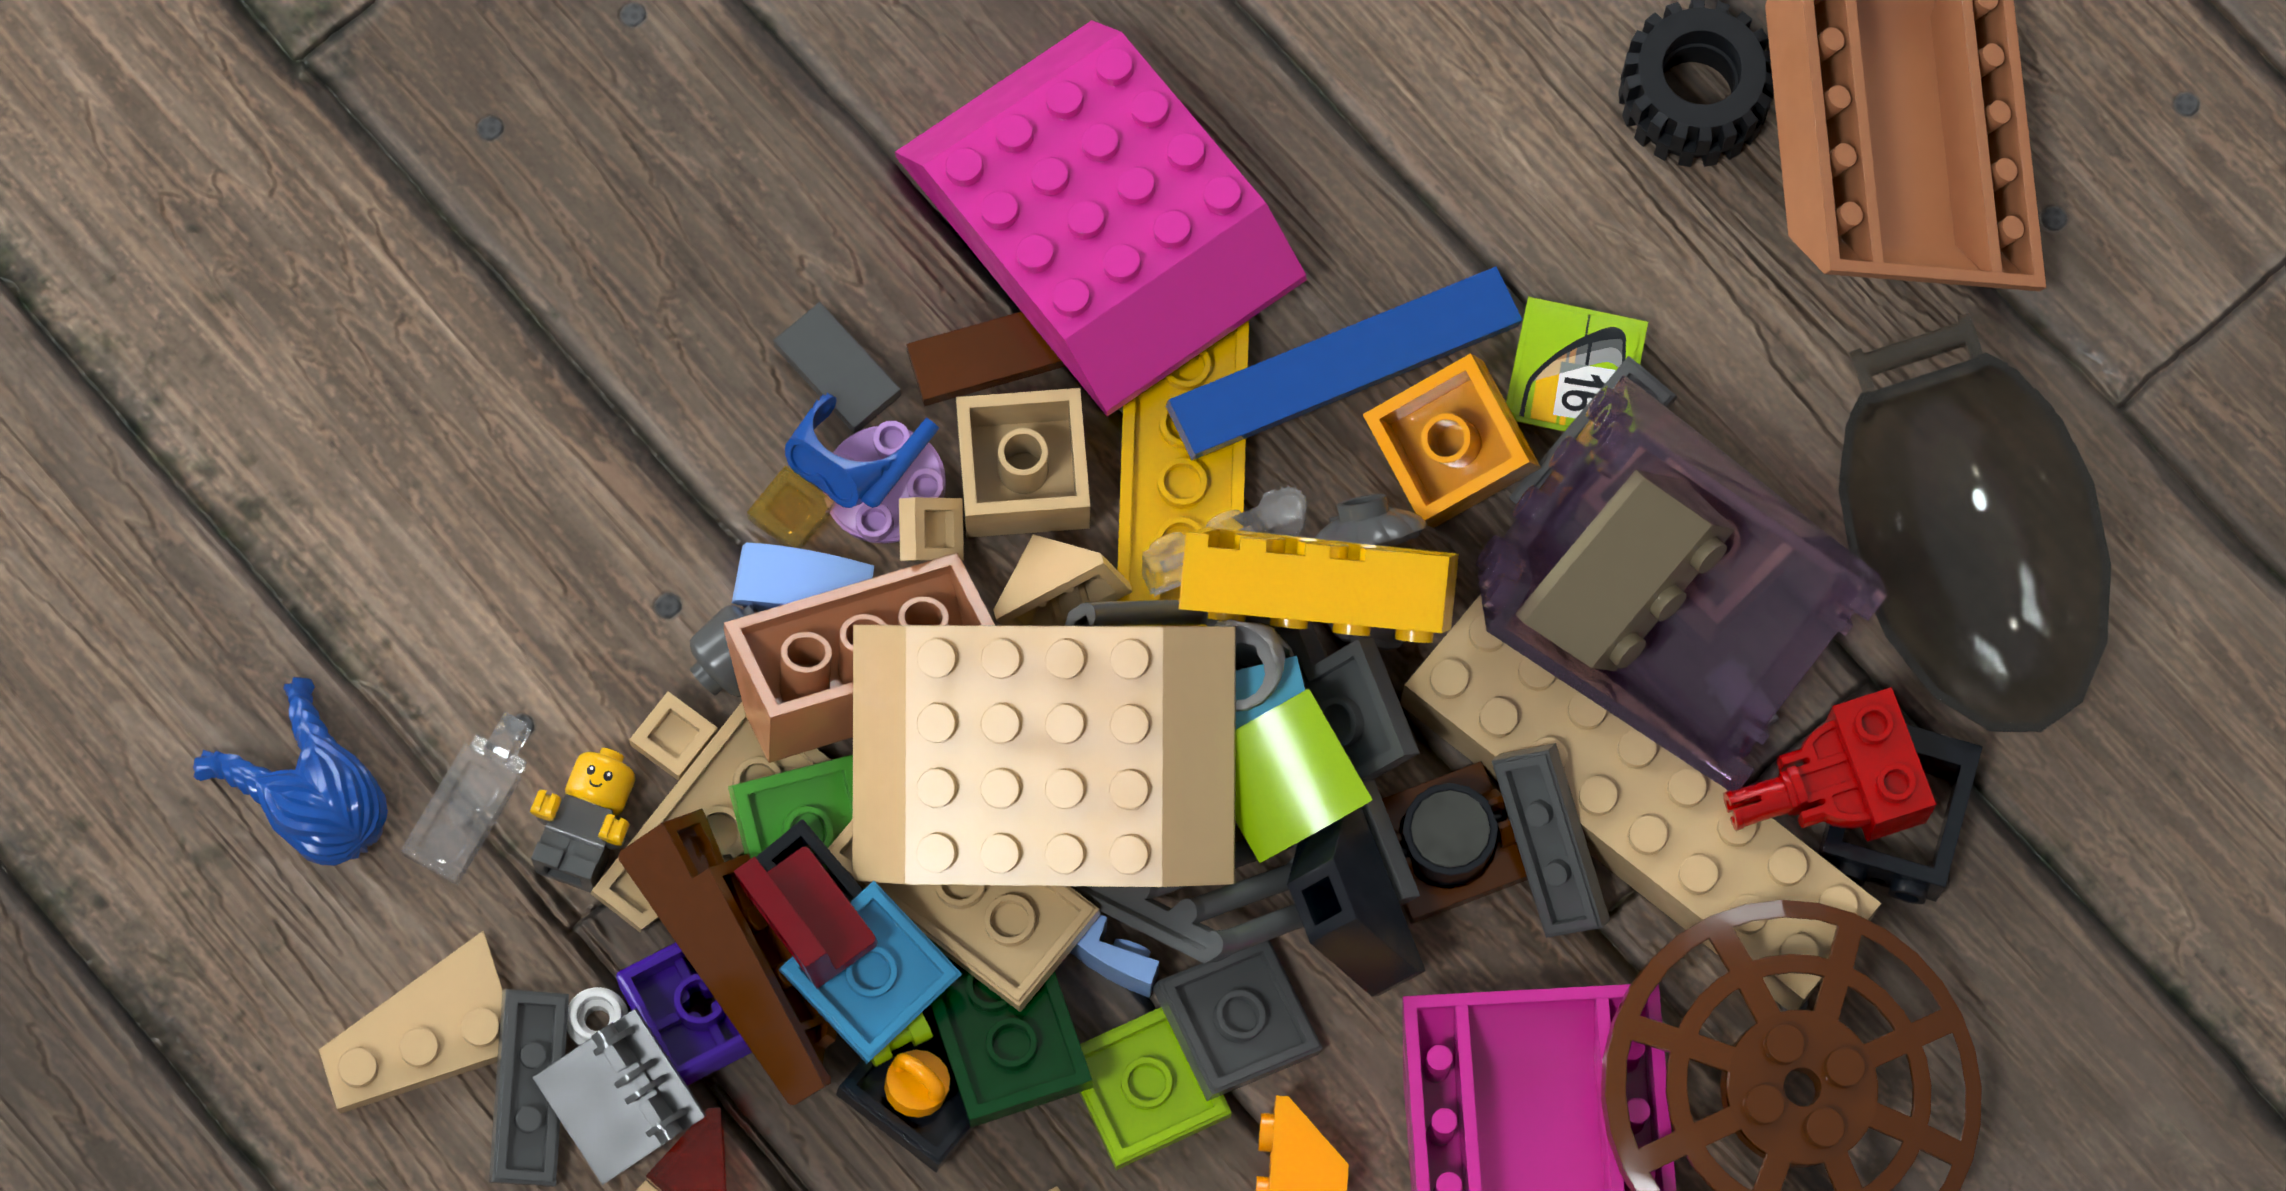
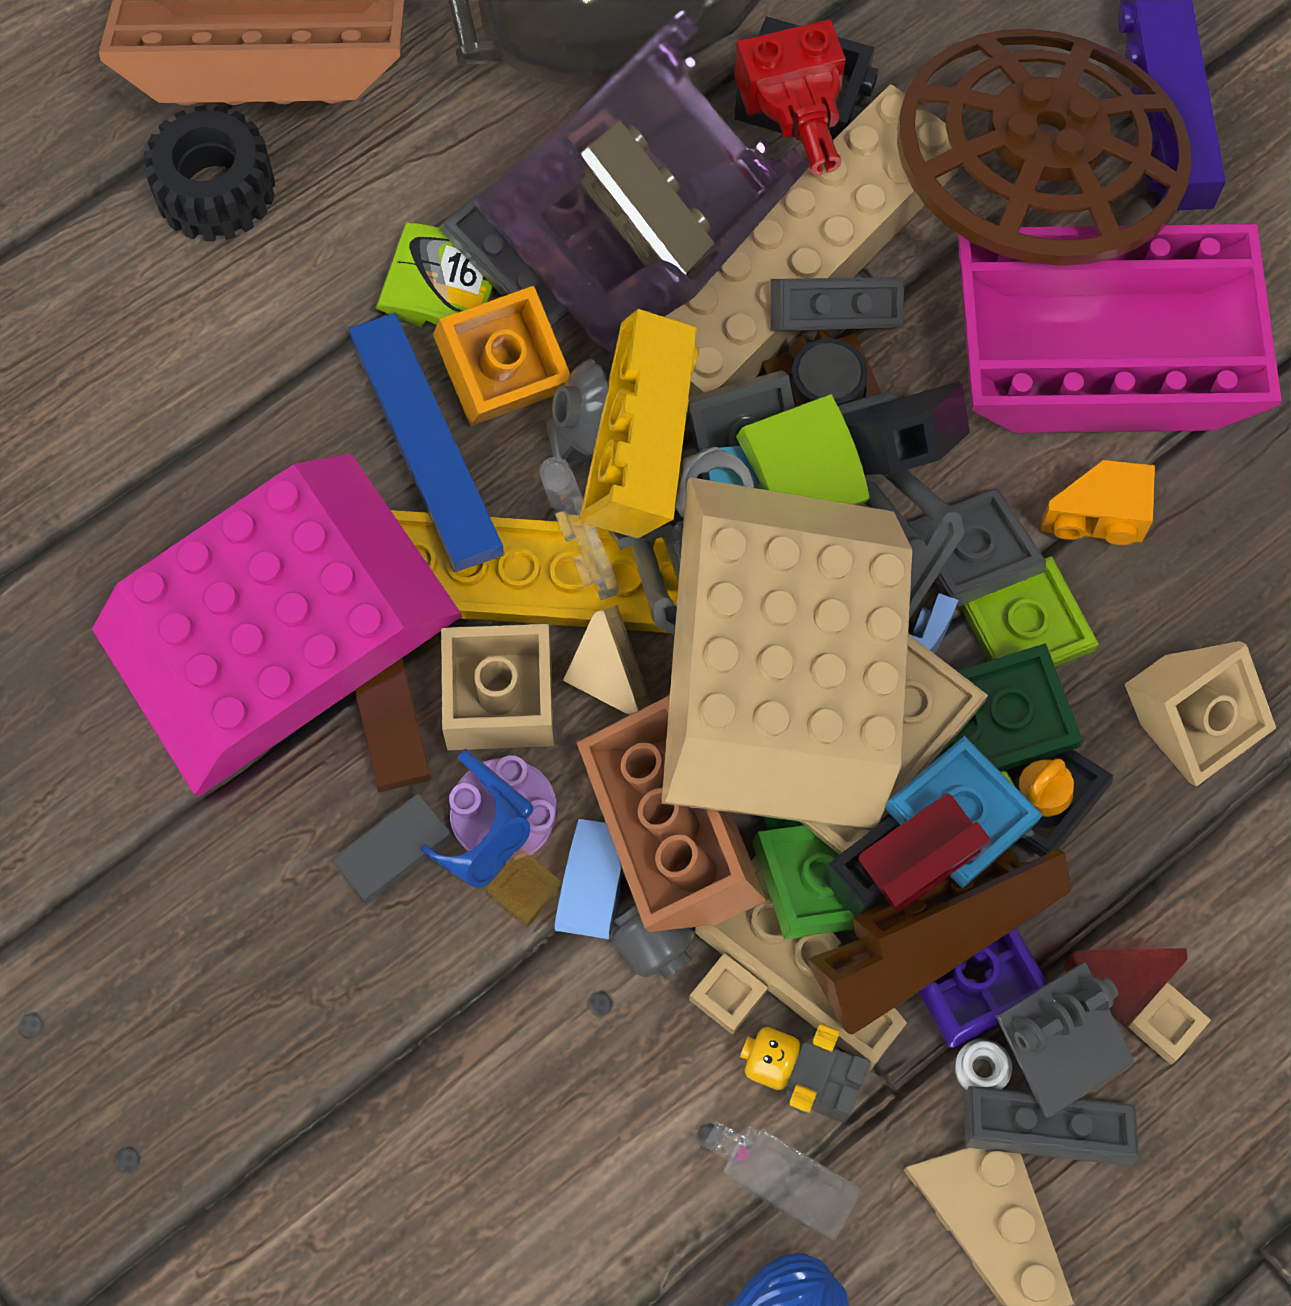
camera: 85 degrees left, 5 degrees down
(930, 528) = (553, 764): tan plate -> none

